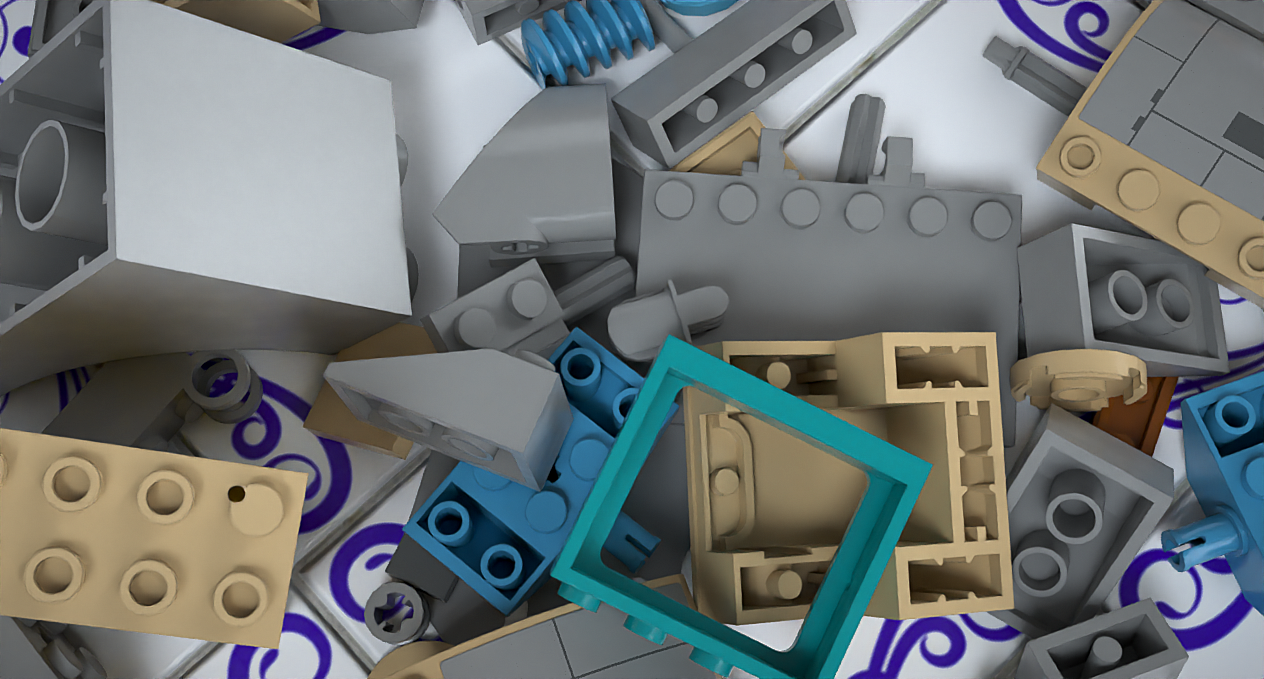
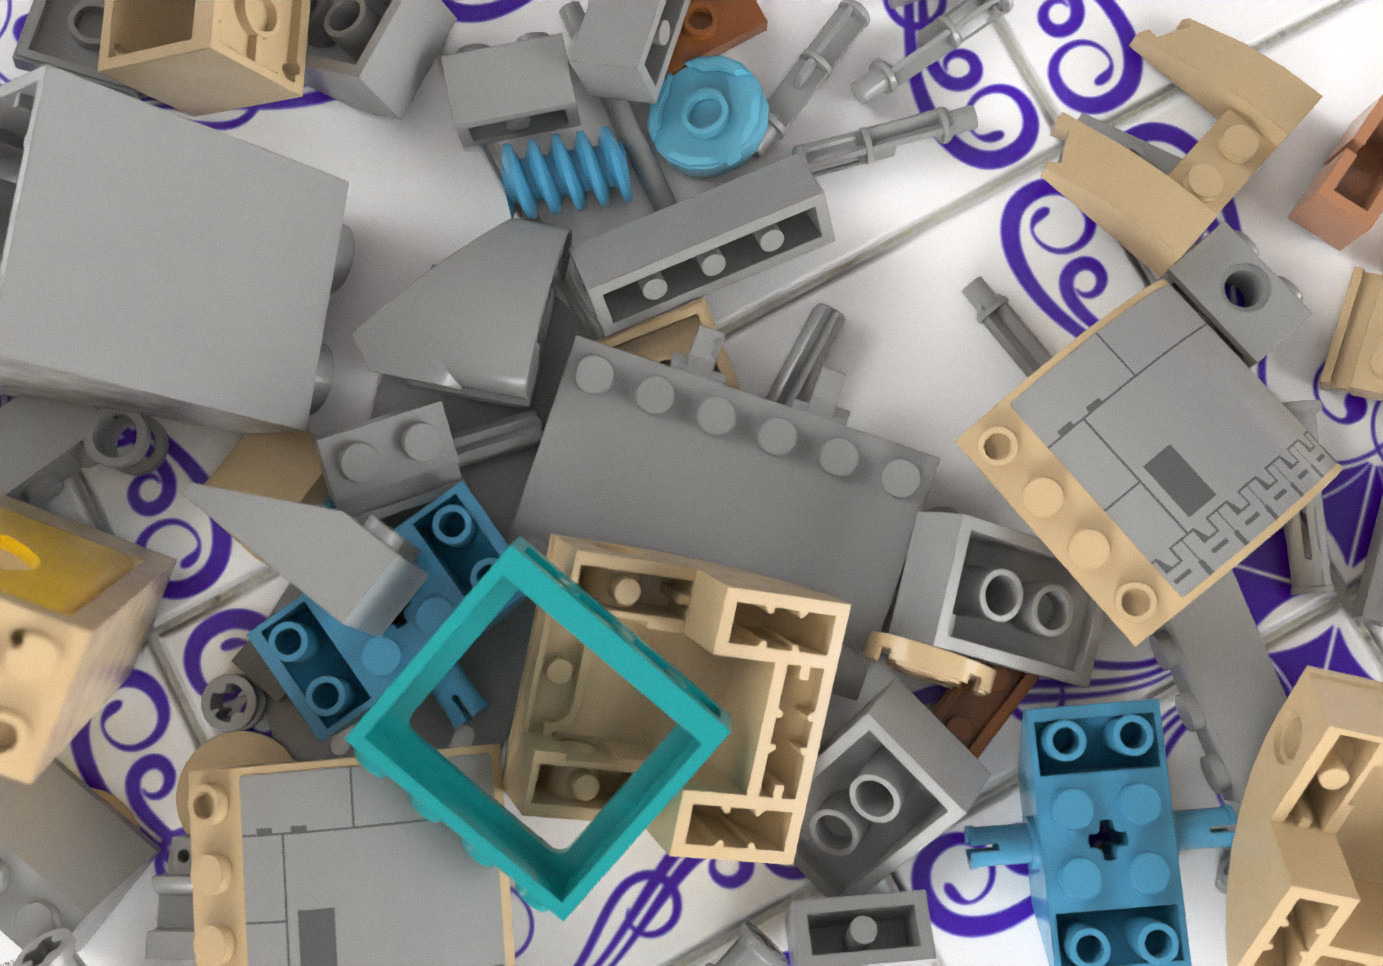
camera: 20 degrees right, 10 degrees up
(644, 321) = (544, 497): light grey arm -> none

